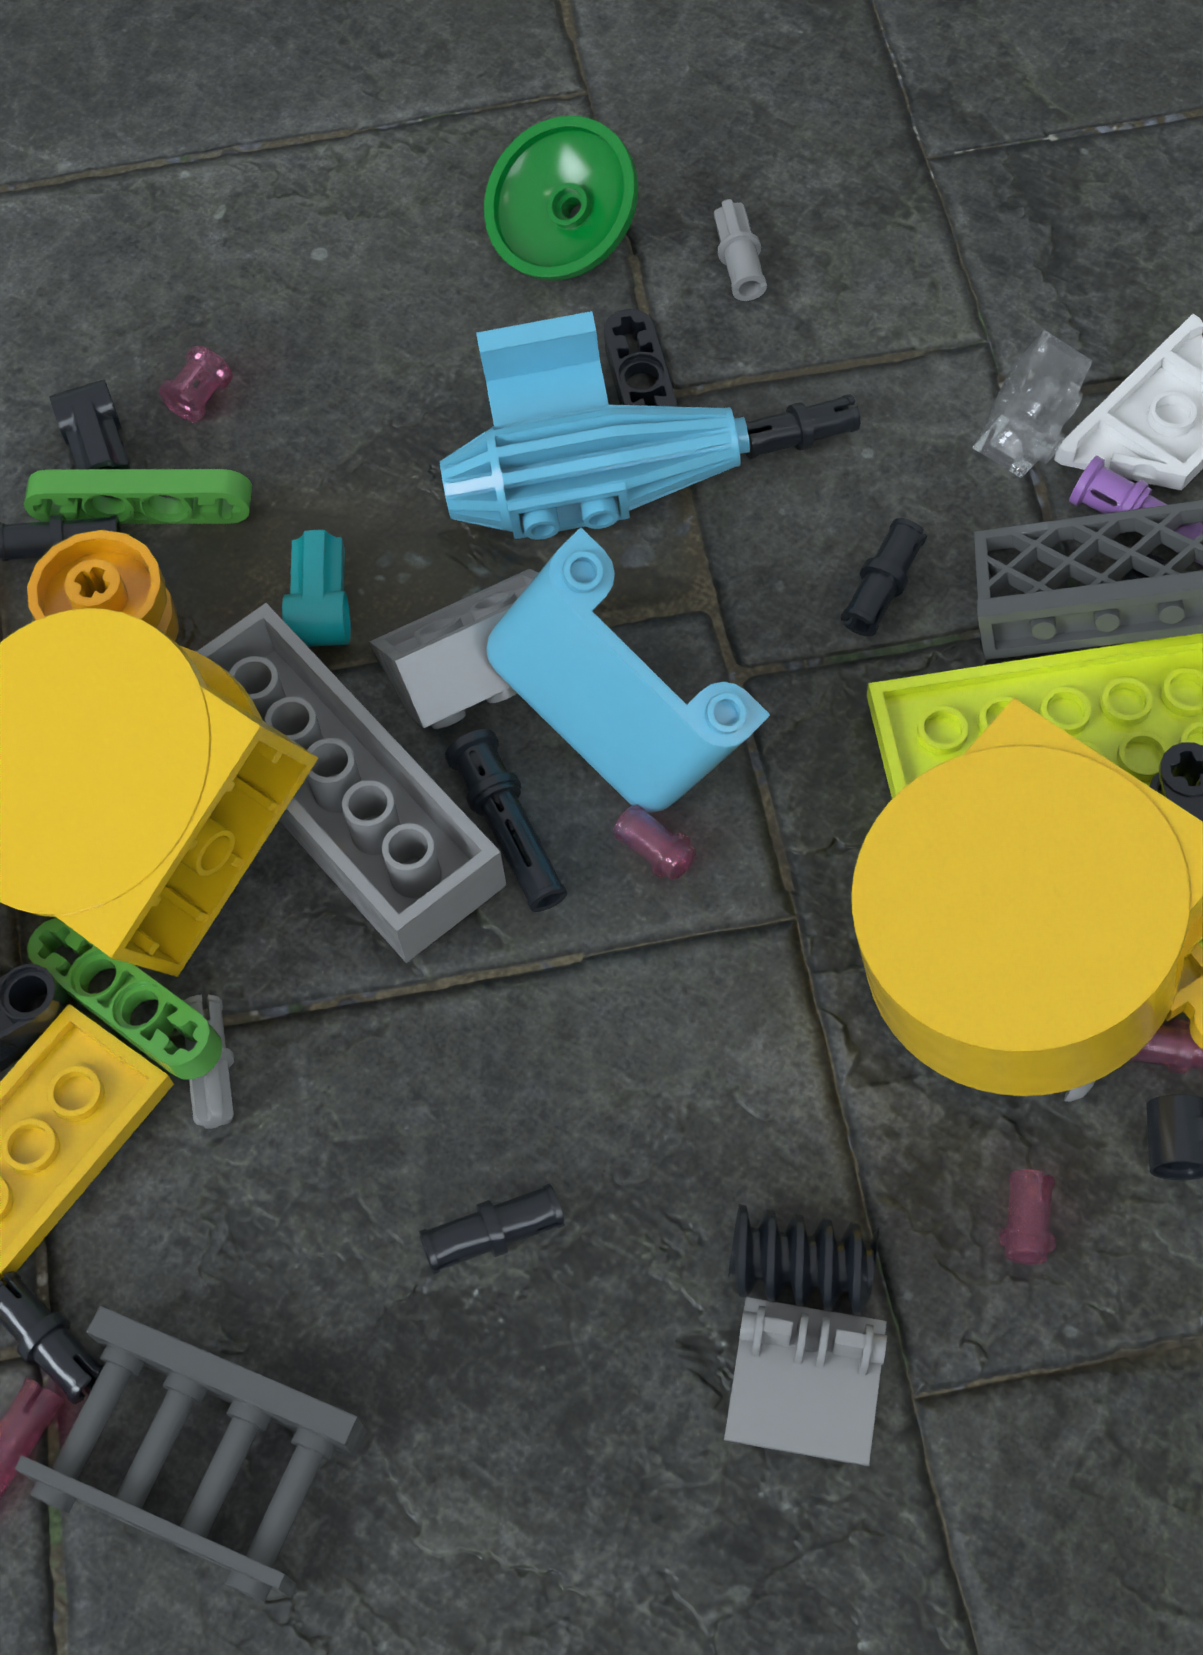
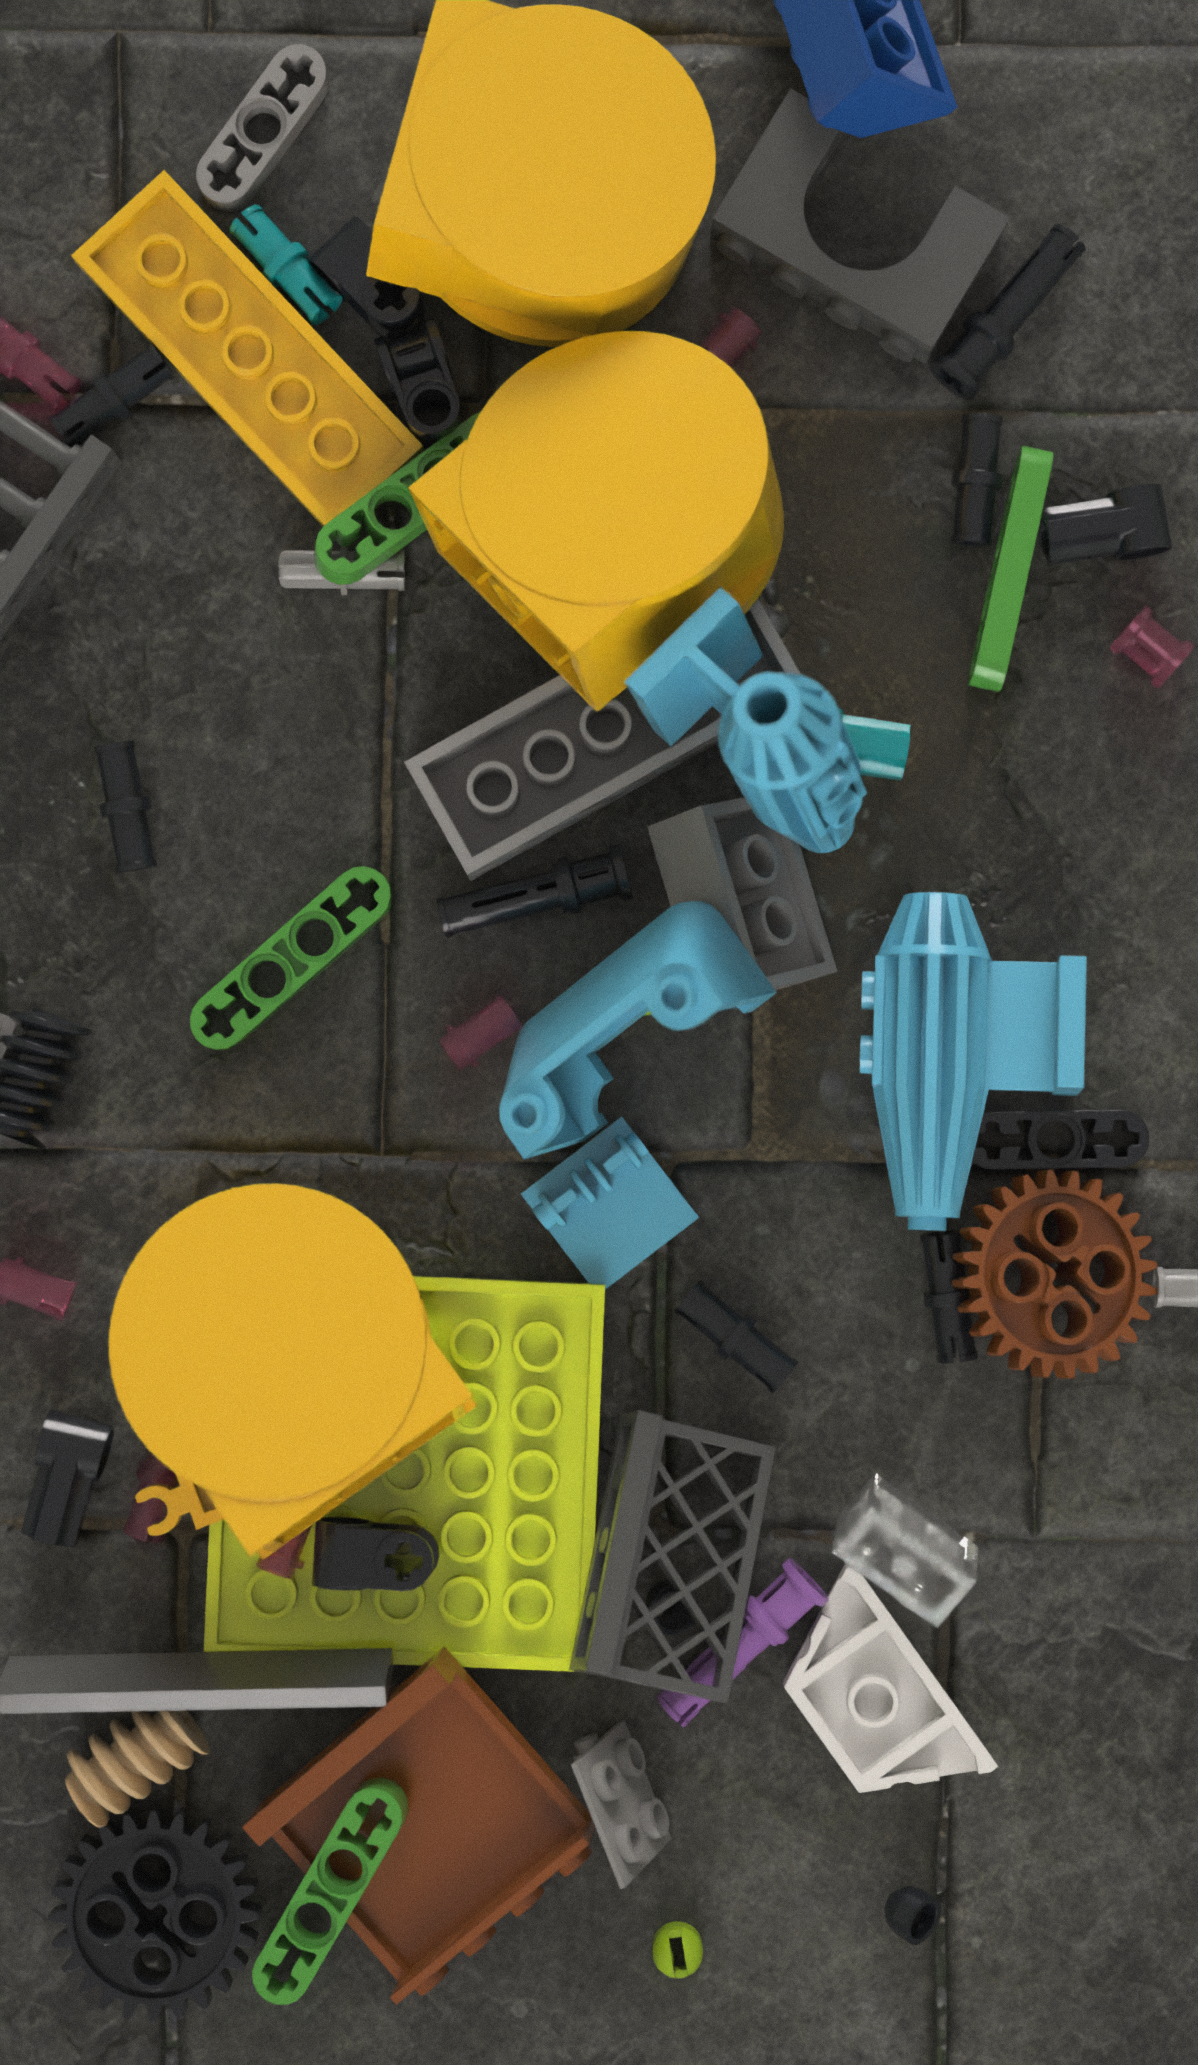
camera: 95 degrees right, 25 degrees up
(102, 573) = (869, 480): light orange wheel -> none
(330, 555) = (774, 729): none -> medium azure piece
(624, 1026) = (285, 950): none -> bright green beam
(759, 349) = (1023, 1319): none -> dark orange gear
(807, 703) = (609, 1205): none -> medium azure hinge

